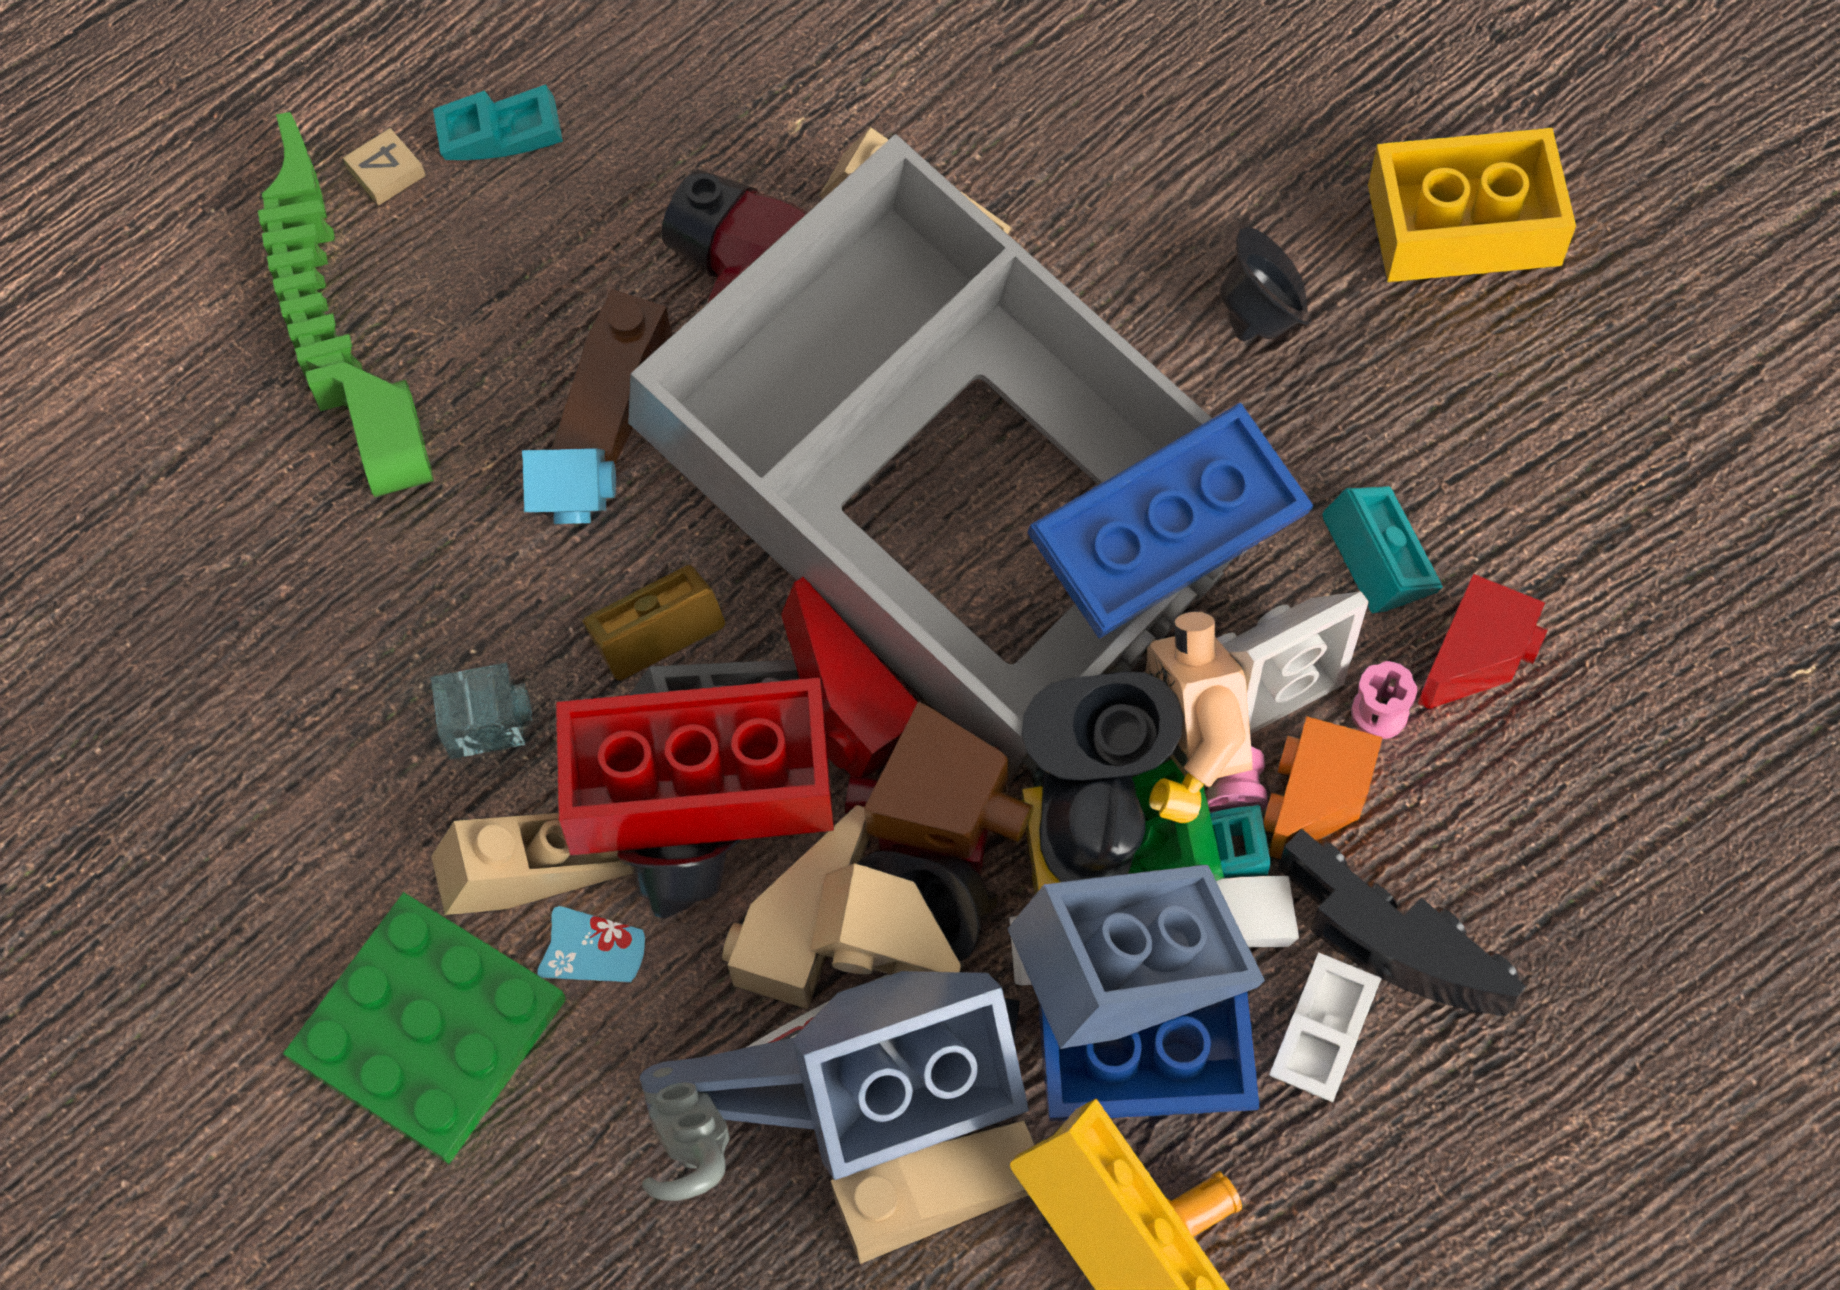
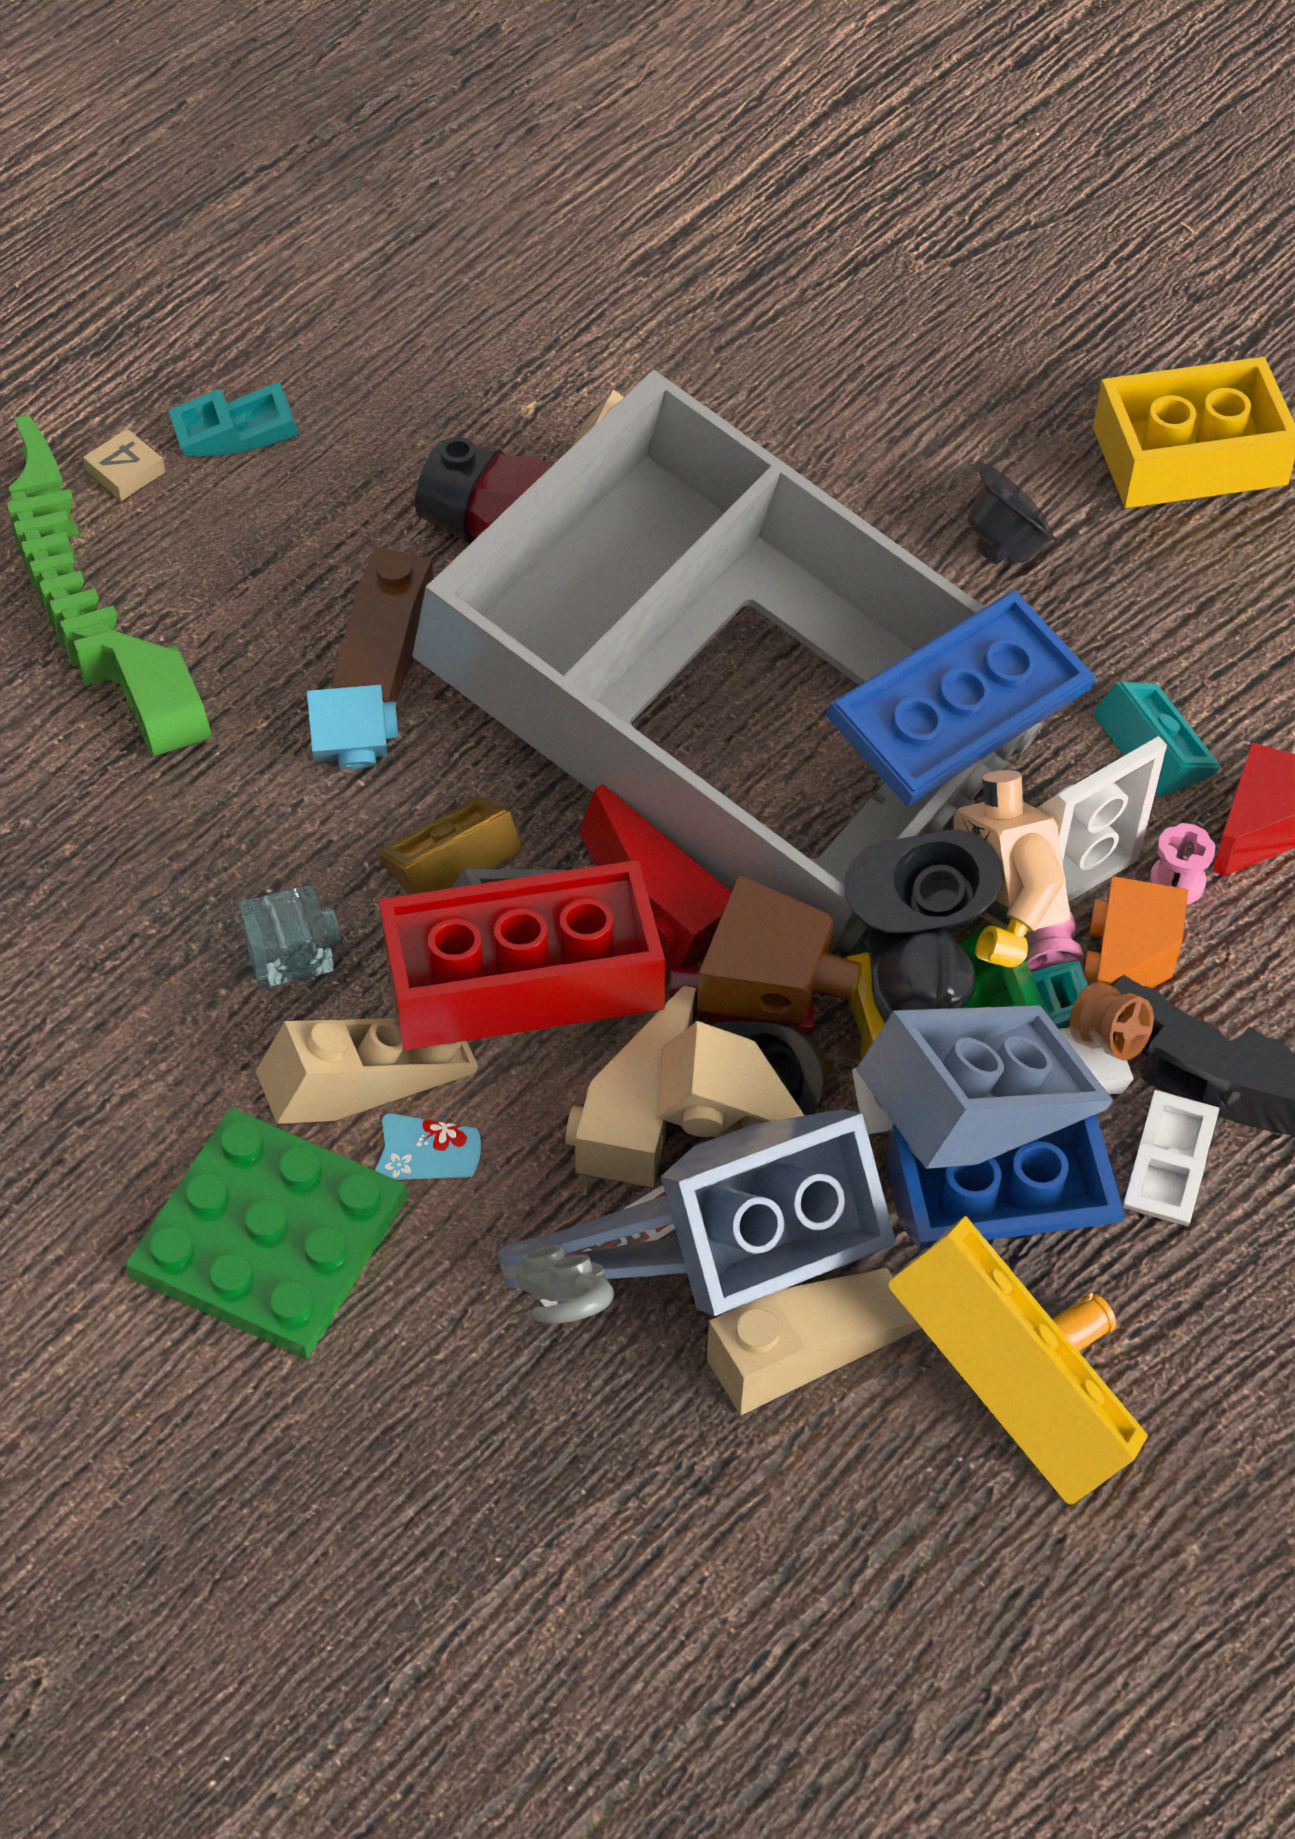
camera: 10 degrees left, 10 degrees down
(677, 874) = (512, 1063): black piece -> none
(1280, 883) = (1111, 1021): none -> dark orange wheel

